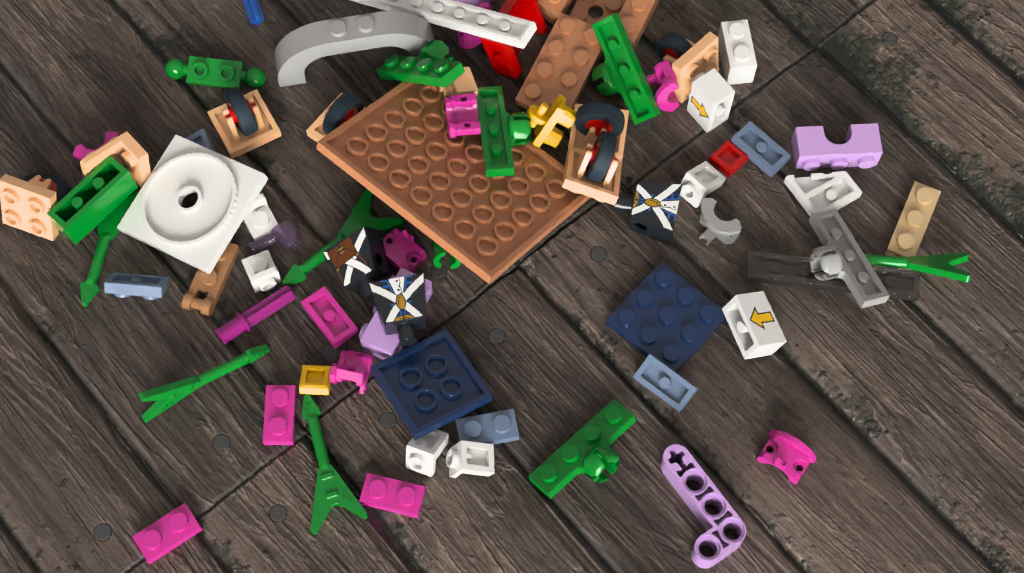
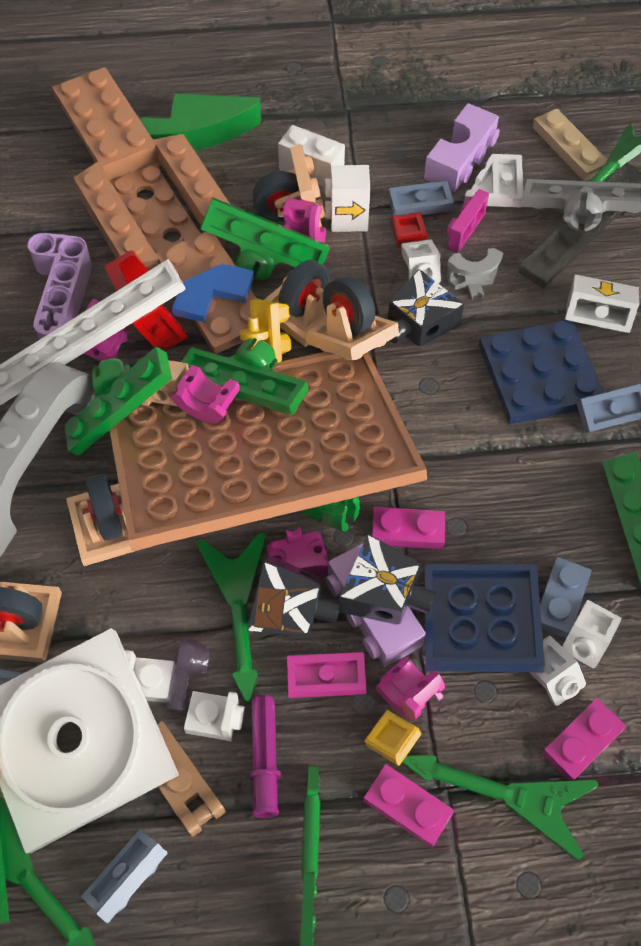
camera: 55 degrees left, 5 degrees down
(471, 305) = (409, 527): none -> dark pink plate
(545, 59) = (221, 281): none -> blue tile
(764, 192) = (470, 216): none -> dark pink plate

